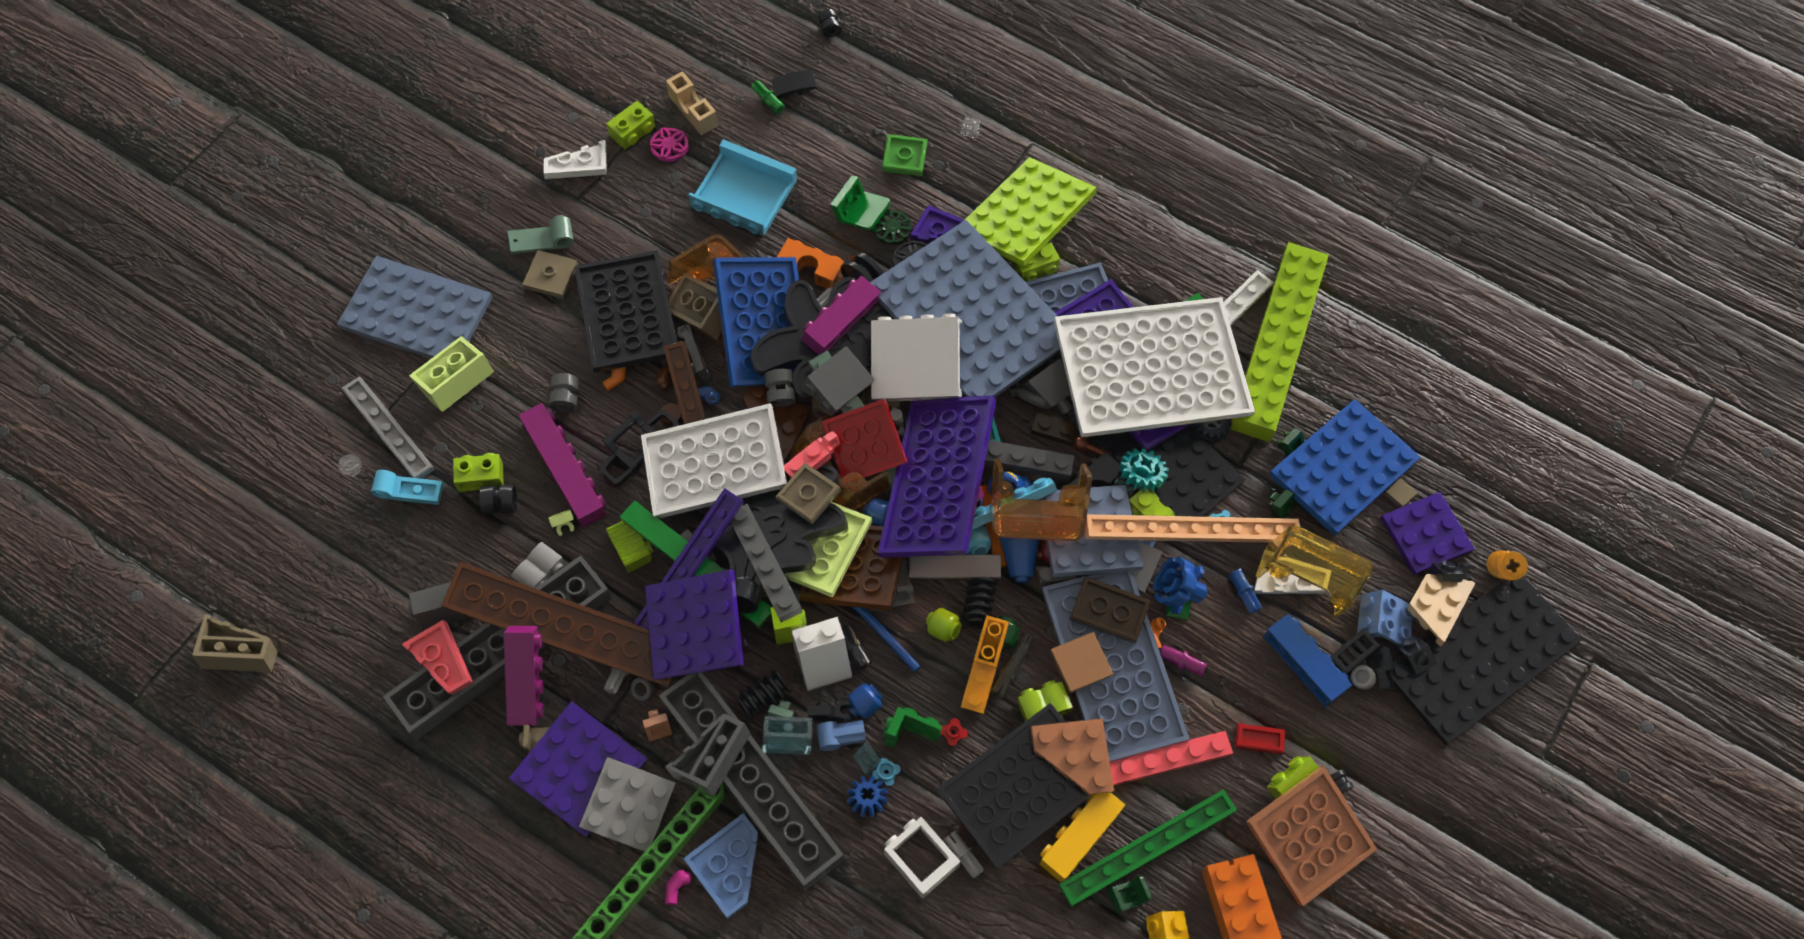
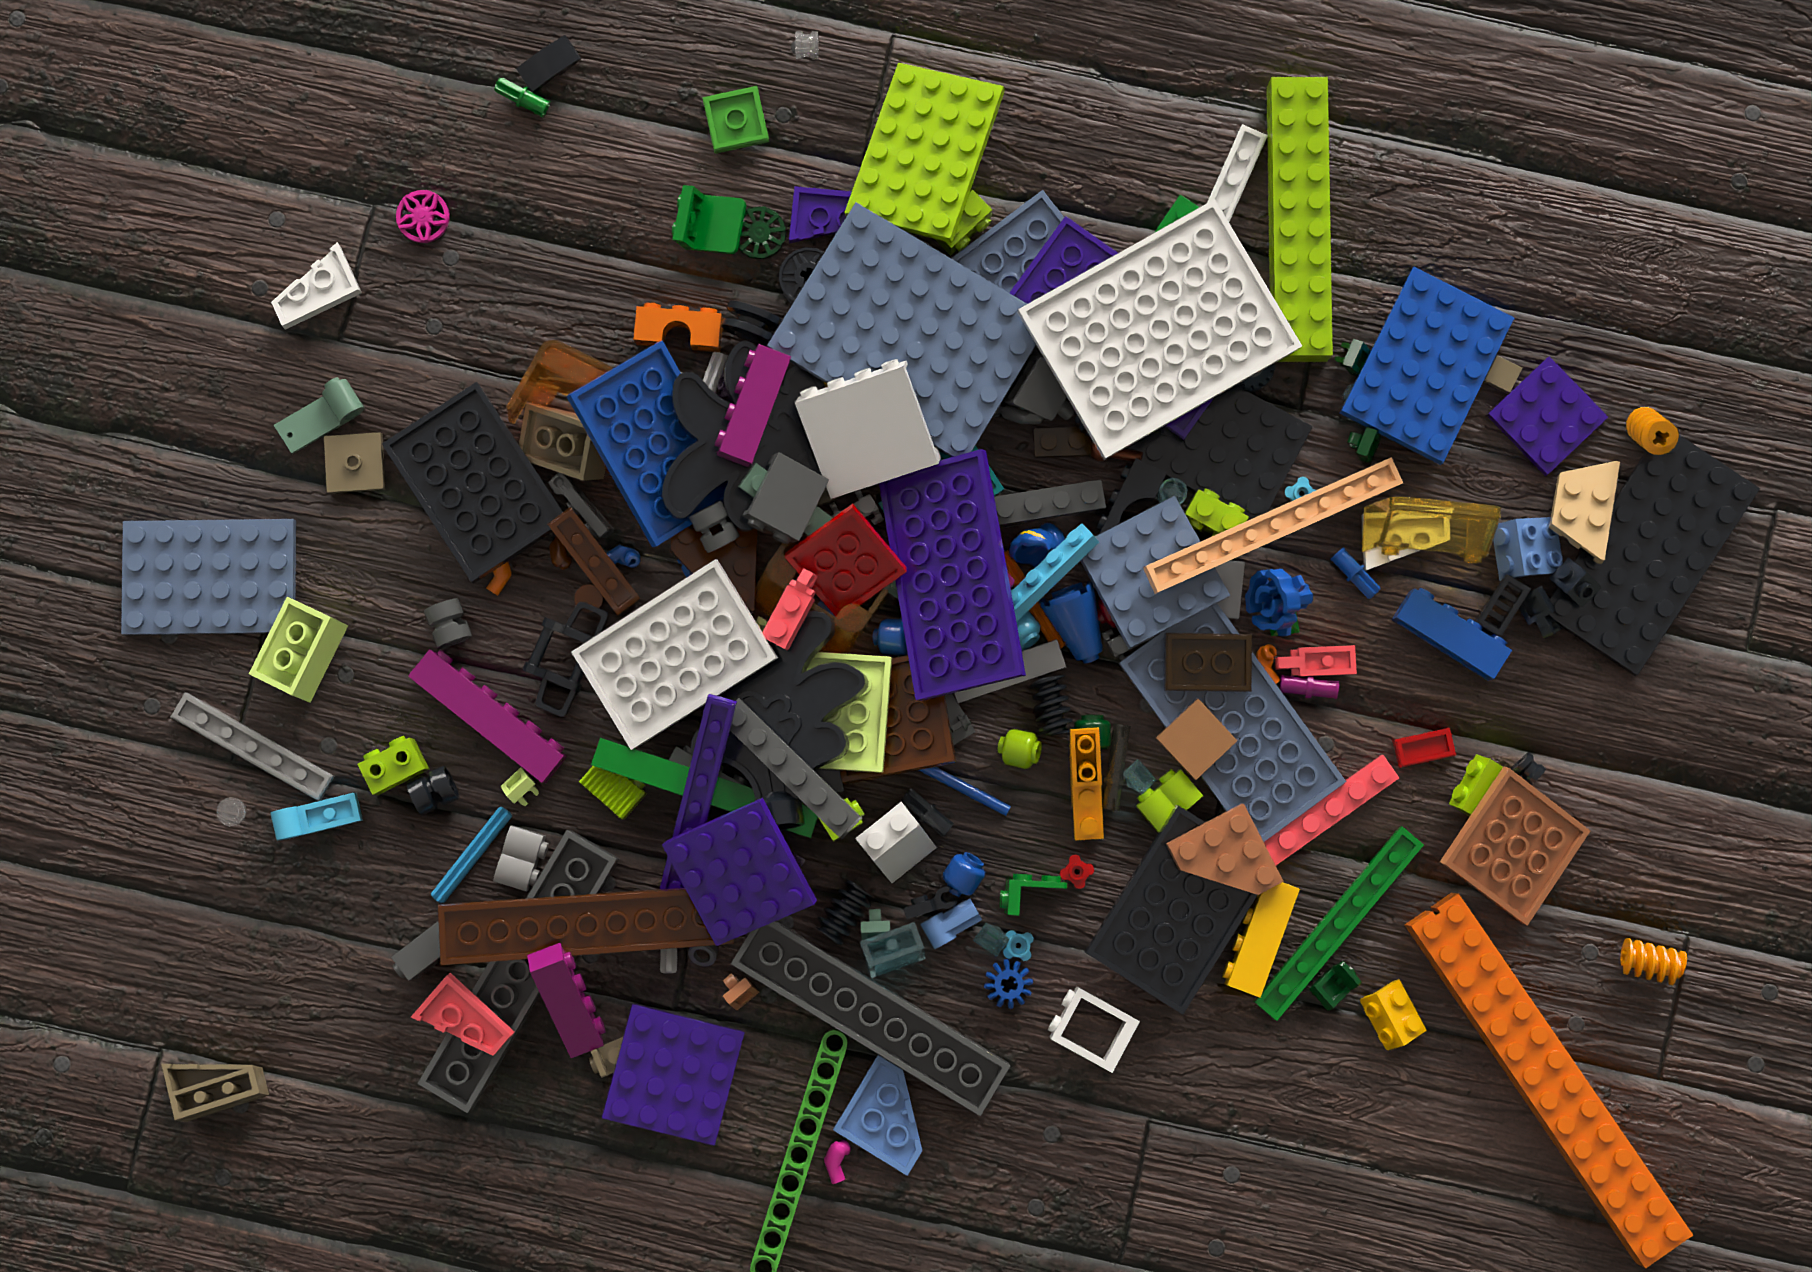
camera: 20 degrees left, 20 degrees up
(512, 551) = (471, 855): none -> dark azure axle
(627, 805) = (745, 1095): light grey plate -> none
(631, 125) = (362, 208): lime brick -> none
(697, 111) = (423, 146): tan arch -> none
(711, 756) = (823, 1017): dark grey wedge -> none
(744, 188) = (547, 249): medium azure panel -> none
(808, 493) = (807, 662): dark tan plate -> none
(964, 854) = (1138, 1006): light grey axle -> none
(1026, 678) = (1138, 777): none -> clear light blue slope
(1040, 518) = (1092, 585): clear orange windscreen -> none
(1143, 469) = (1190, 469): teal gear -> none
(1196, 644) = (1319, 661): none -> coral hinge
(1363, 677) = (1521, 630): light grey tile -> none
(1449, 572) = (1587, 461): black plate -> none

